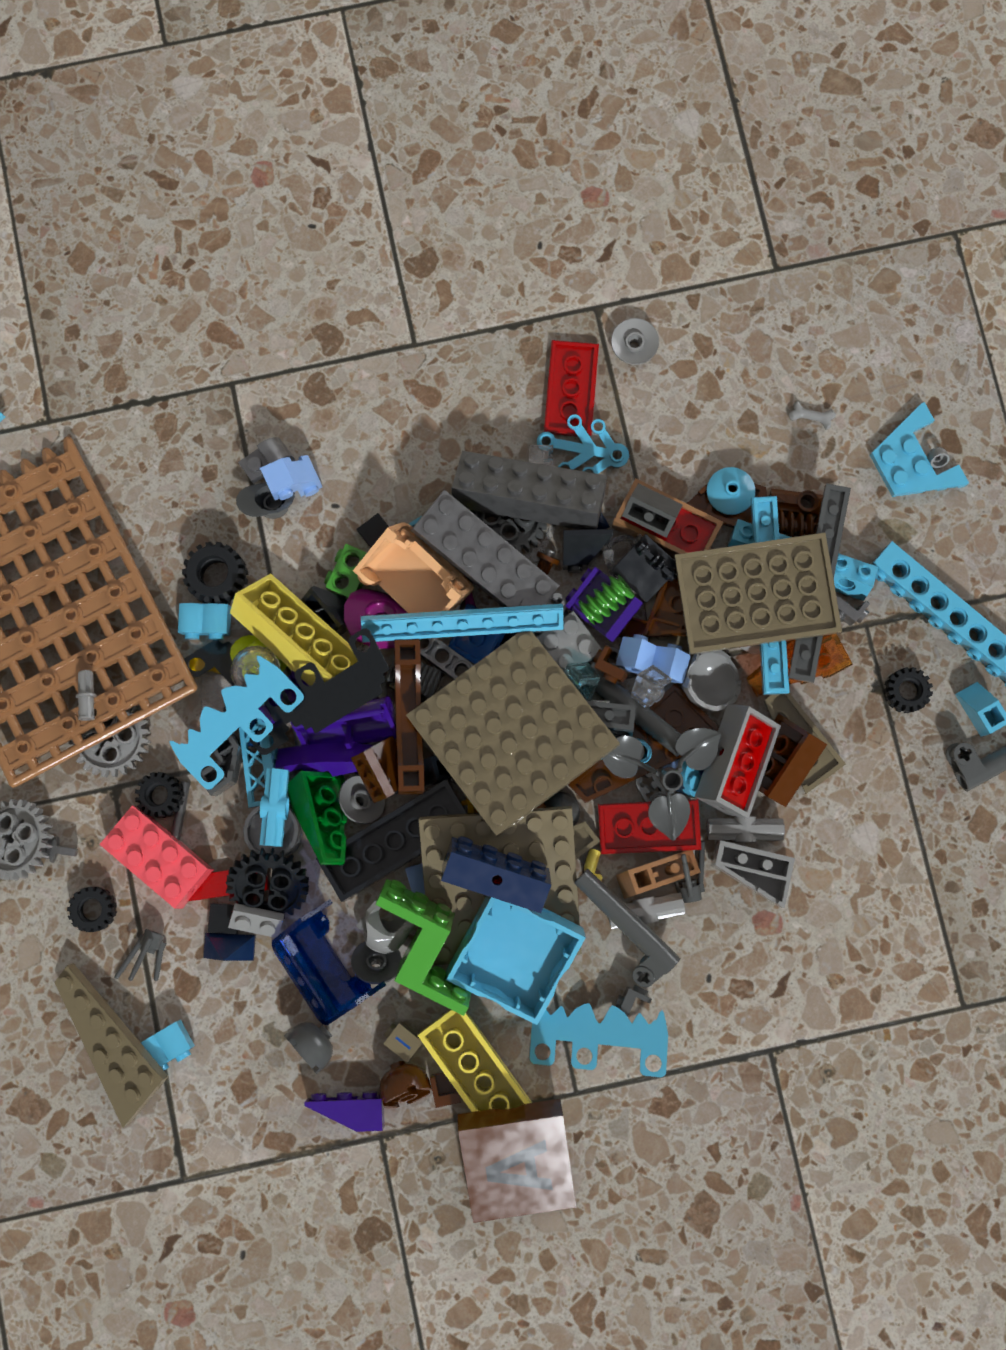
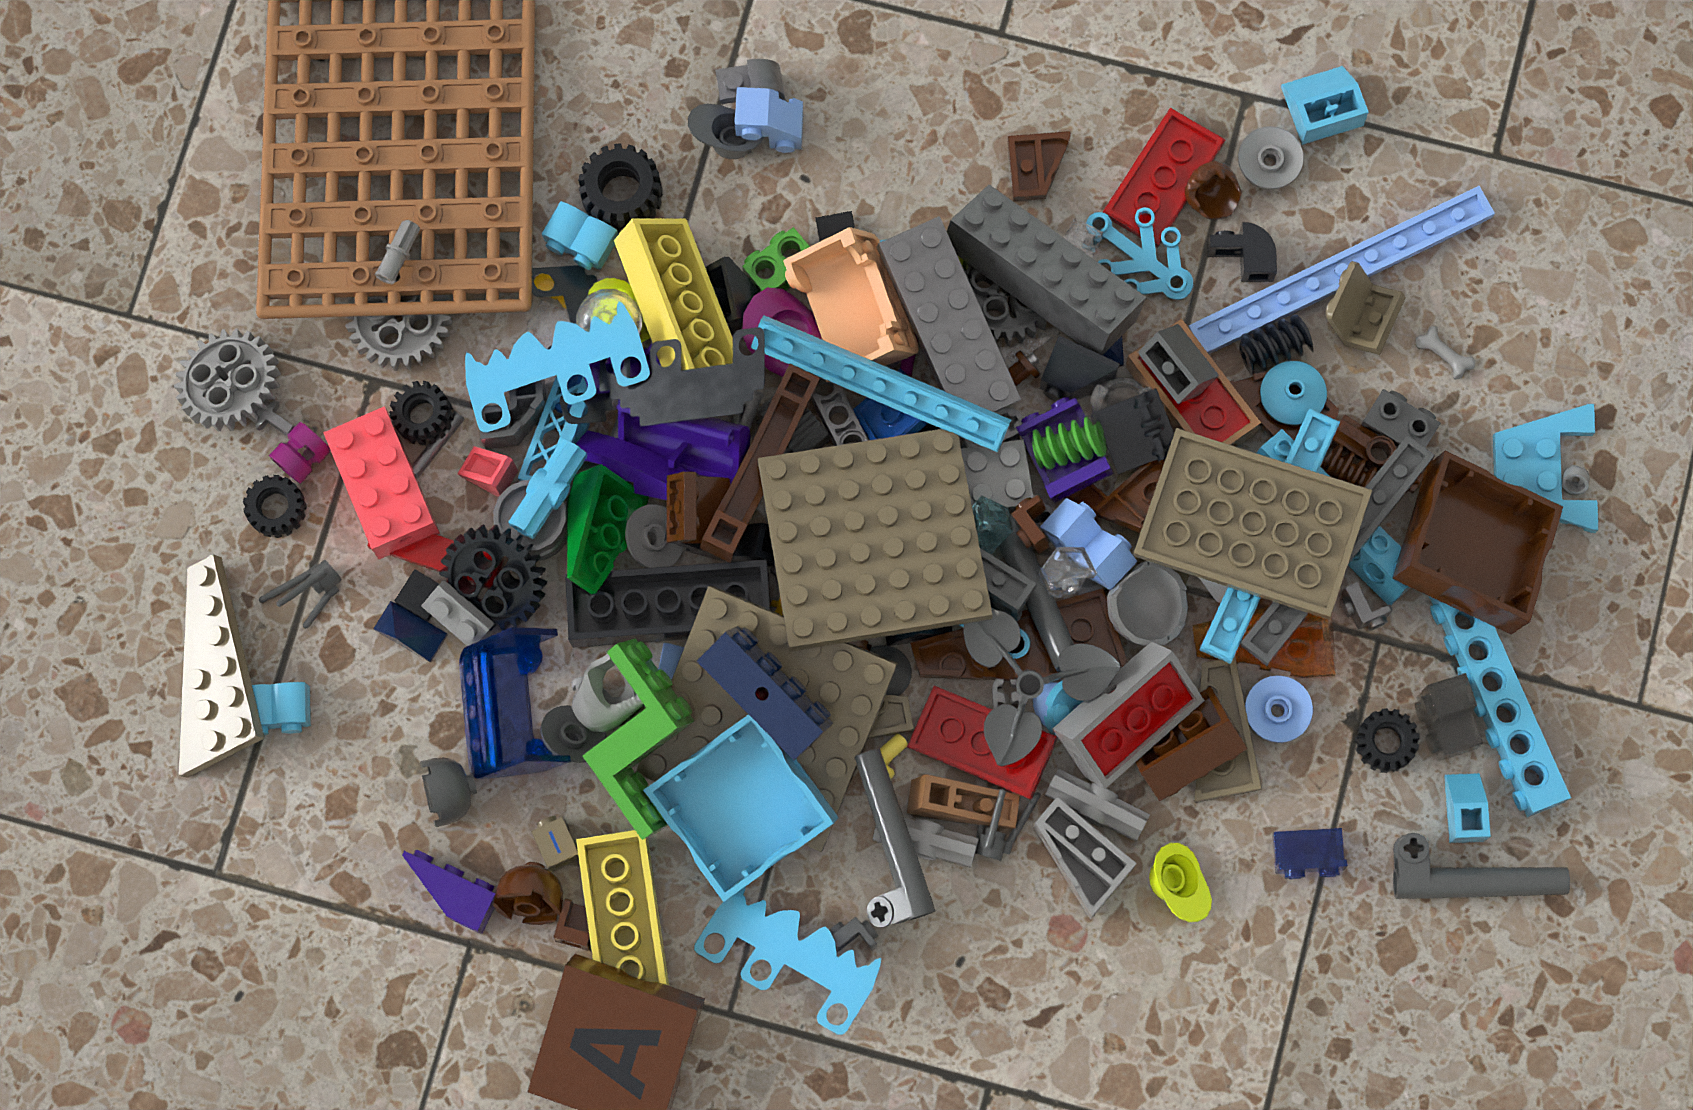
camera: 30 degrees right, 5 degrees down
(86, 873) = (291, 461): none -> magenta wheel
(225, 811) = (489, 470): none -> coral slope
(482, 420) = (1035, 163): none -> reddish brown wing
(610, 381) = (1213, 190): none -> reddish brown hair
(652, 288) = (1325, 104): none -> medium azure slope
(656, 408) = (1253, 247): none -> black brick
(701, 462) = (1274, 342): none -> black piece
(719, 393) = (1323, 278): none -> light blue plate
(749, 414) = (1363, 311): none -> dark tan bracket
(808, 475) = (1396, 419): none -> dark grey brick
(825, 853) = (1180, 882): none -> neon yellow piece
(839, 699) = (1290, 697): none -> light blue dish
(896, 789) = (1309, 852): none -> clear blue bracket
(904, 532) = (1477, 543): none -> reddish brown tile
(941, 655) = (1449, 717): none -> clear smoke brick

